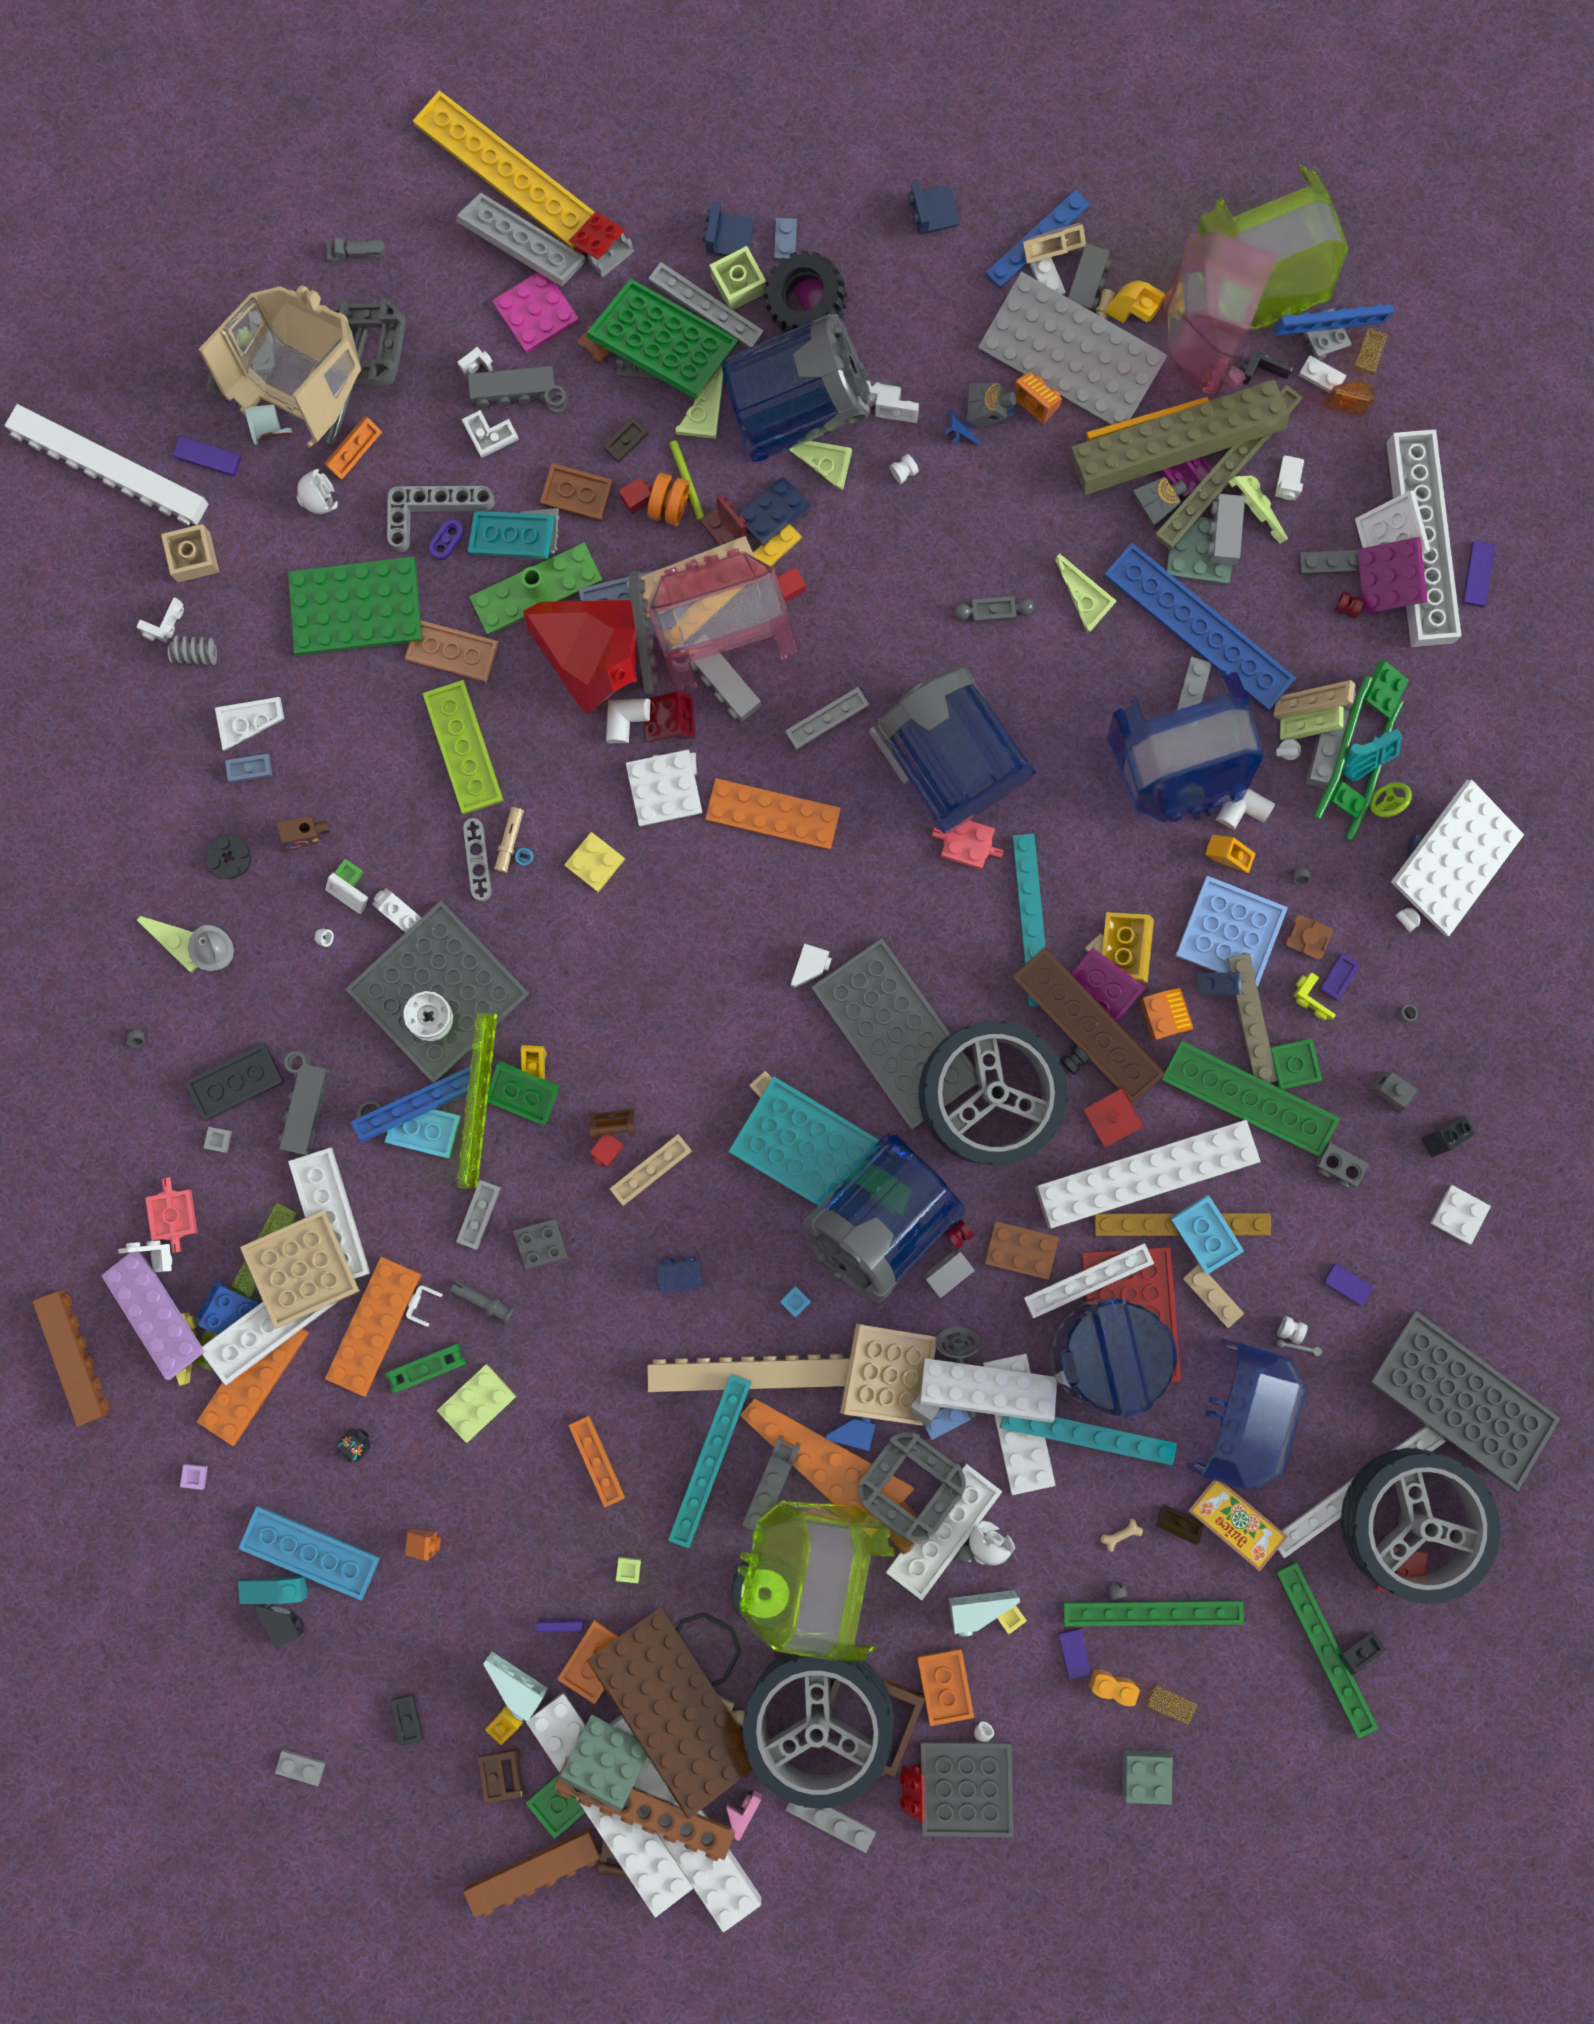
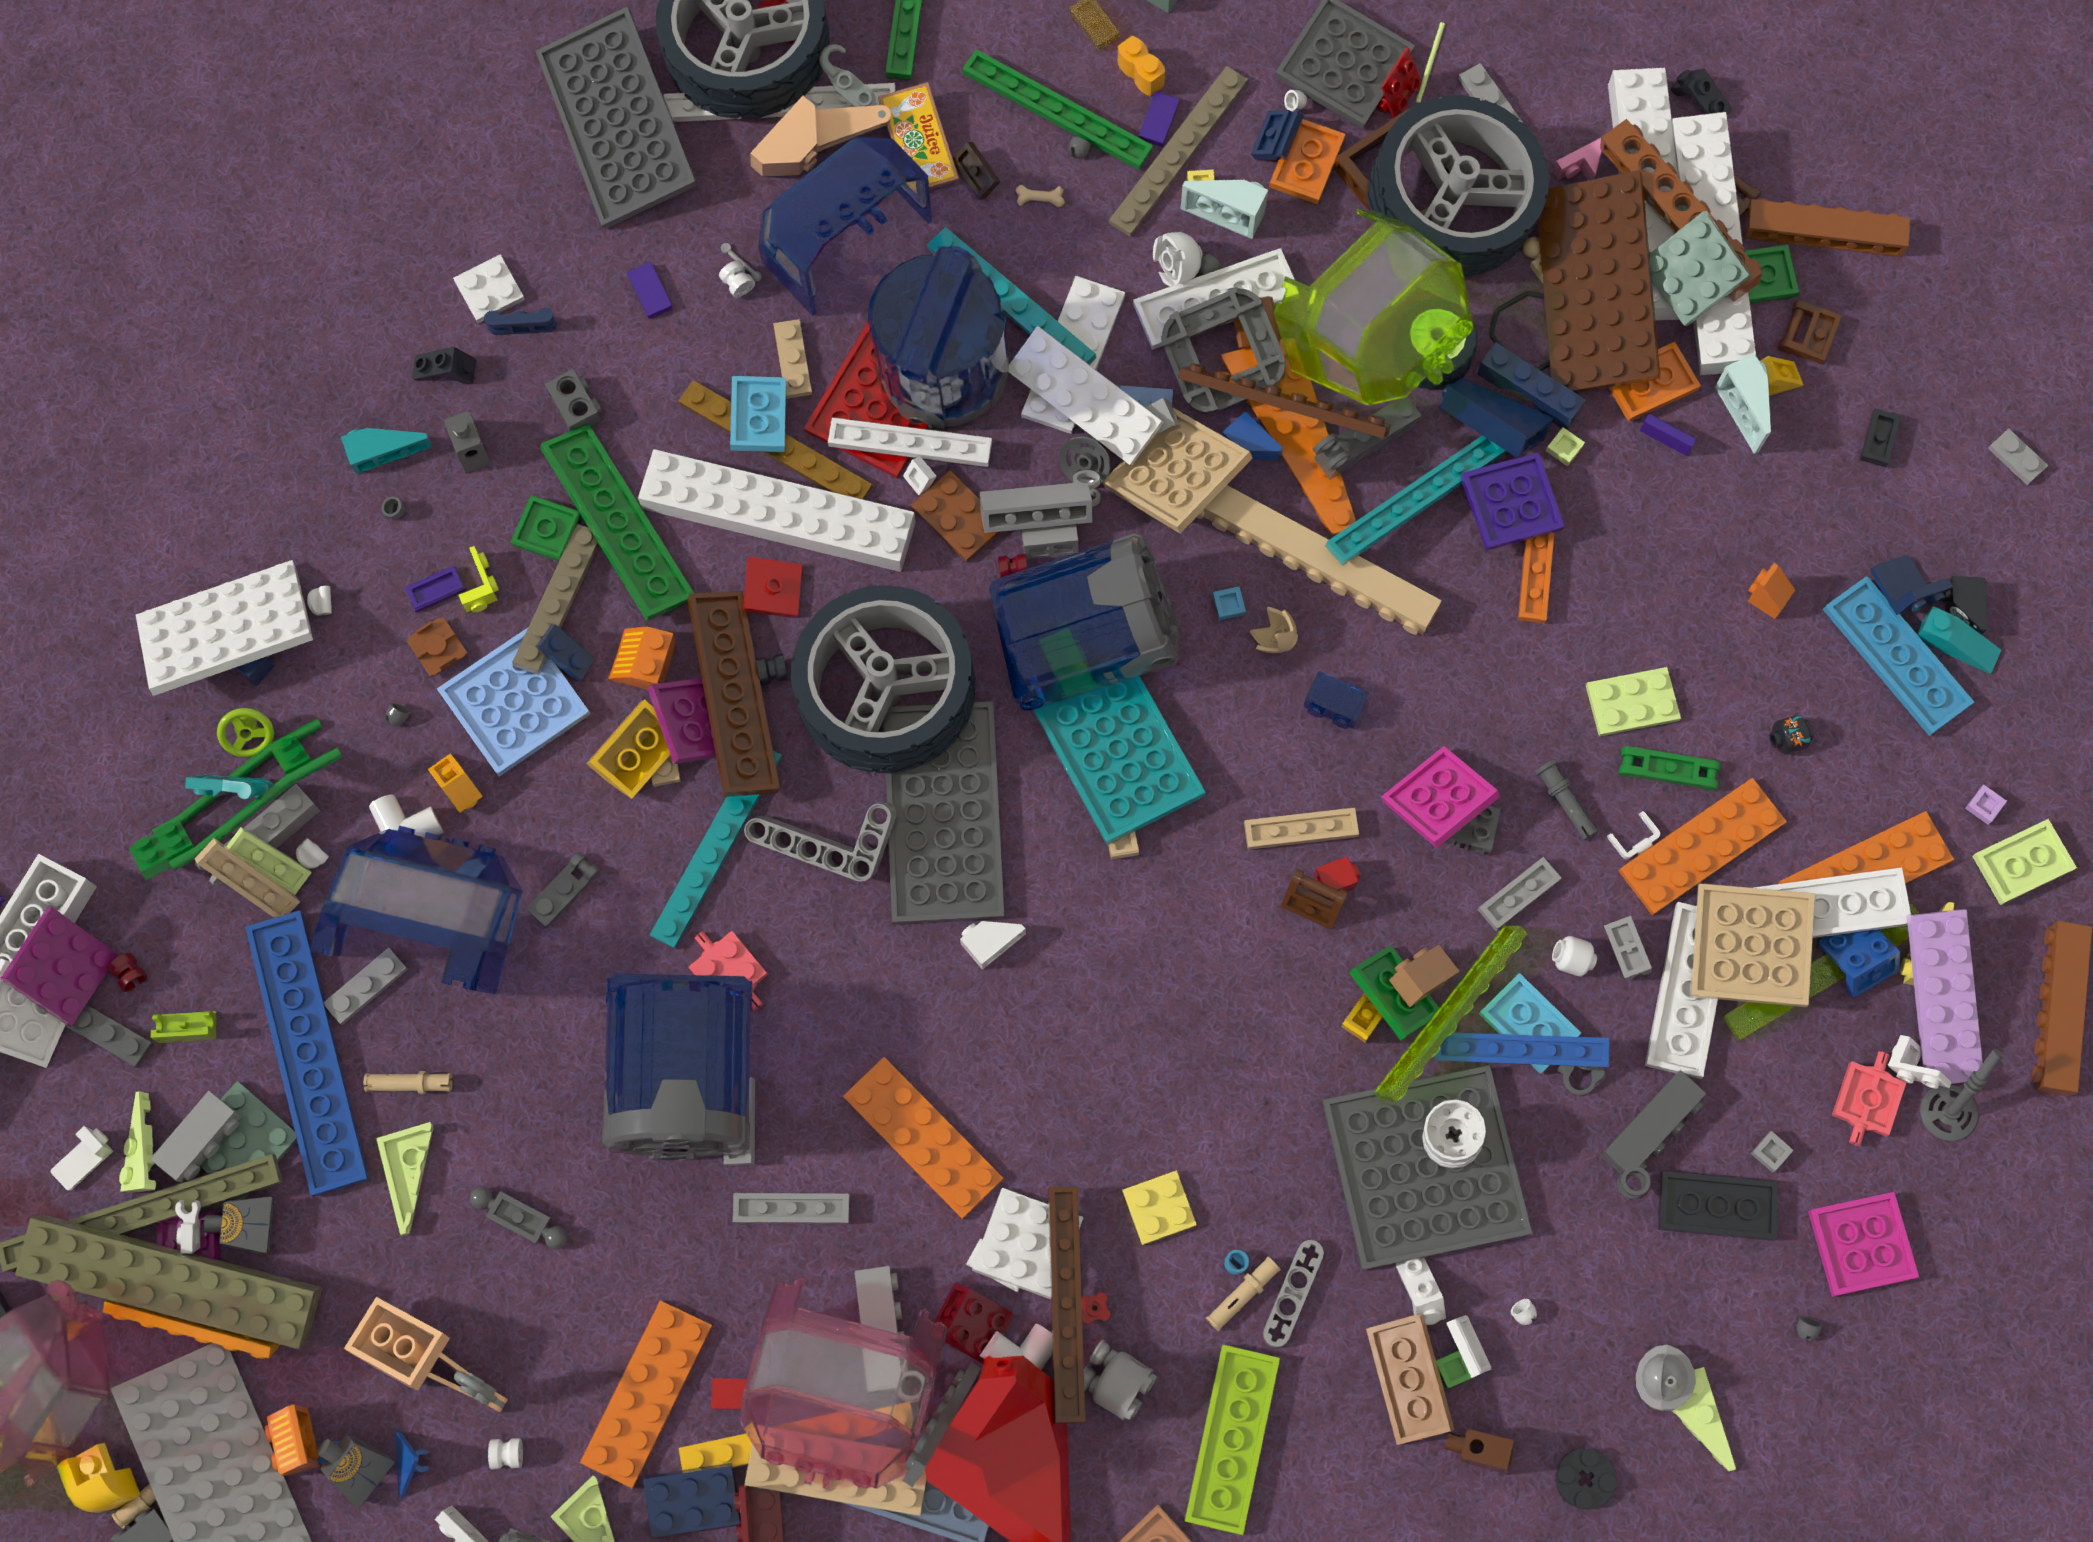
camera: 145 degrees left, 10 degrees down
(111, 1243) = (1955, 1106): none -> dark grey dish
(127, 1114) = (1863, 1244): none -> dark pink plate
(147, 1450) = (2024, 862): none -> yellowish green plate
(329, 1609) = (1906, 587): none -> dark blue bracket
(371, 849) = (1410, 1379): none -> medium nougat plate
(384, 1219) = (1628, 948): none -> light grey hinge
(418, 1192) = (1574, 956): none -> white head
(509, 1115) = (1423, 975): none -> medium nougat brick
(551, 734) = (1118, 1382): none -> light grey piece
(568, 1247) = (1440, 797): none -> dark pink plate
(597, 780) = (1099, 1301): none -> red plate
(614, 760) = (1066, 1305): none -> reddish brown plate
(640, 1498) = (1512, 501): none -> dark purple plate
(677, 1602) = (1552, 398): none -> dark blue arch
(687, 1934) = (1703, 90): none -> black bracket
(689, 1560) = (1496, 416): none -> dark blue slope
(748, 1296) = (1280, 635): none -> tan piece
(837, 1471) = (1295, 403): none -> reddish brown plate
(842, 556) = (646, 1394): none -> orange plate
(899, 1813) = (1430, 62): none -> yellowish green axle
(957, 961) = (825, 846): none -> light grey beam
(967, 1287) = (1040, 505): none -> light grey hinge
(979, 1693) = (1277, 134): none -> dark blue plate
(1003, 484) = (408, 1351): none -> light nougat slope
(1044, 1636) = (1178, 151): none -> dark tan plate
(1066, 1261) = (919, 475): none -> white plate
(1110, 828) = (562, 890): none -> dark grey plate
(1115, 651) = (418, 1082): none -> tan pin
(1188, 471) = (189, 1233): none -> white plate
(1287, 595) = (184, 1027): none -> lime hinge
(1318, 1474) = (805, 131): none -> light nougat slope
(1419, 1202) = (520, 322): none -> dark blue plate
(1453, 1046) = (376, 447): none -> teal slope

